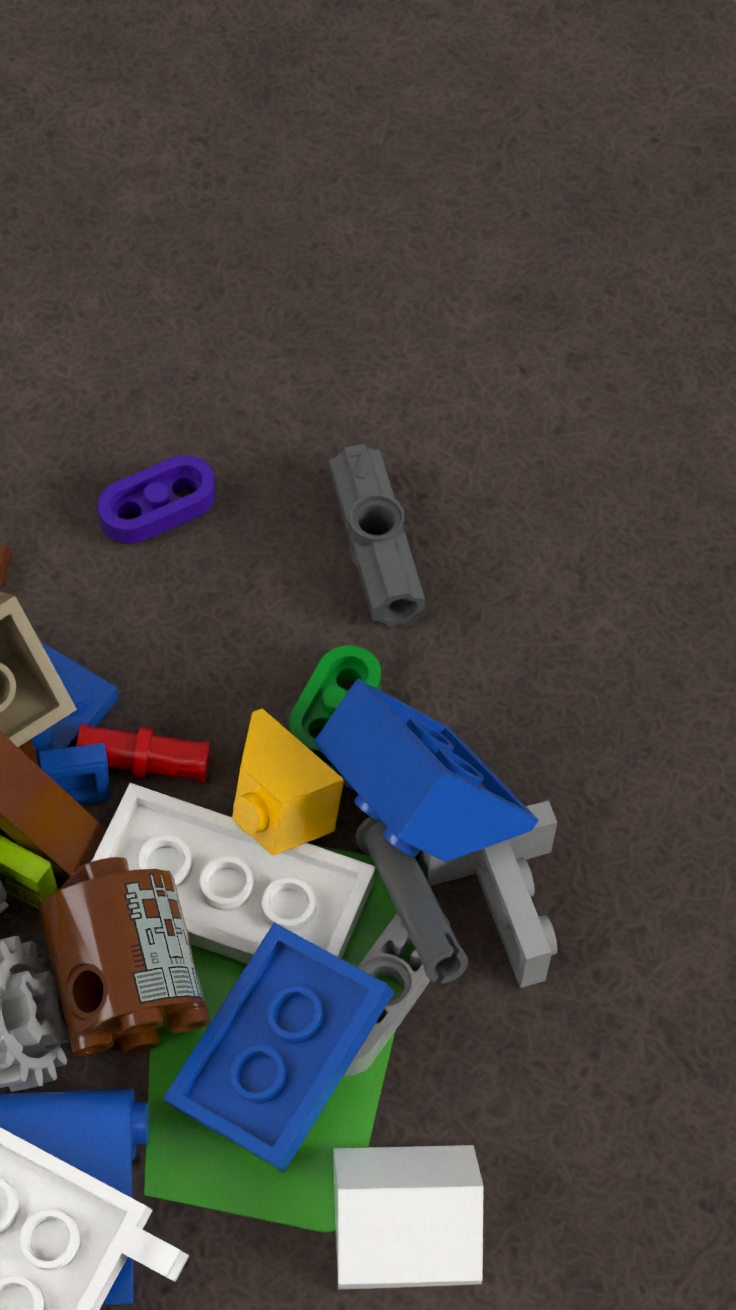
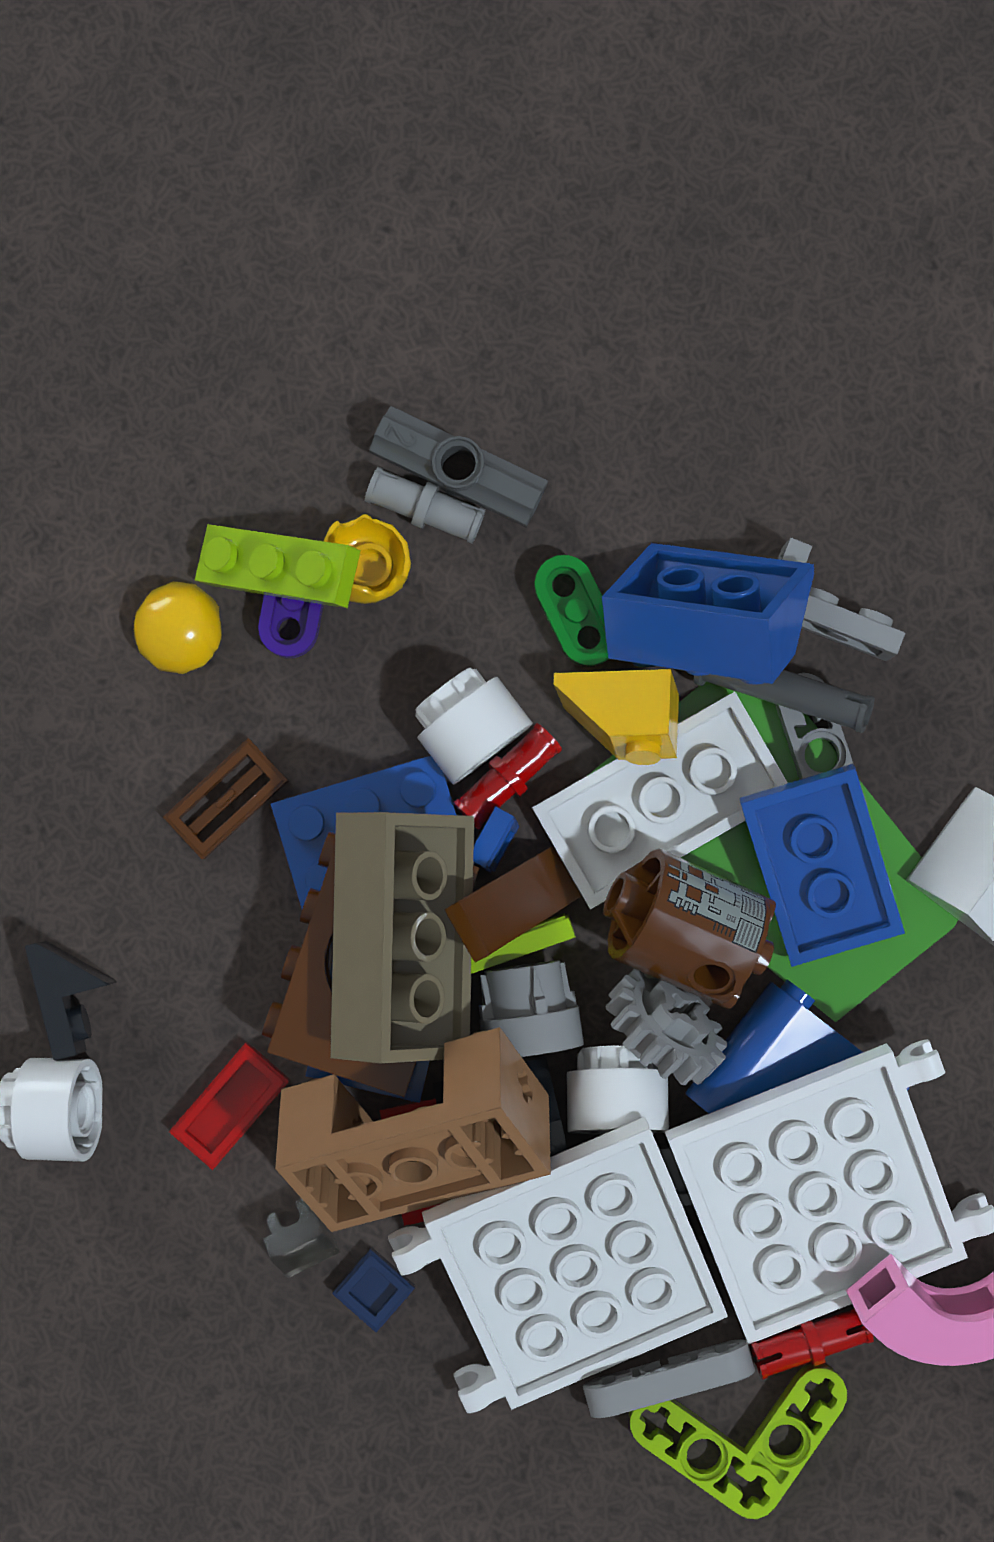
camera: 45 degrees left, 30 degrees up
(61, 438) = (178, 627): none -> yellow hair
(160, 679) = (469, 723): none -> white piece
(172, 453) = (278, 565): none -> lime plate
(234, 518) = (382, 559): none -> yellow hair
(322, 536) = (424, 505): none -> light grey pin

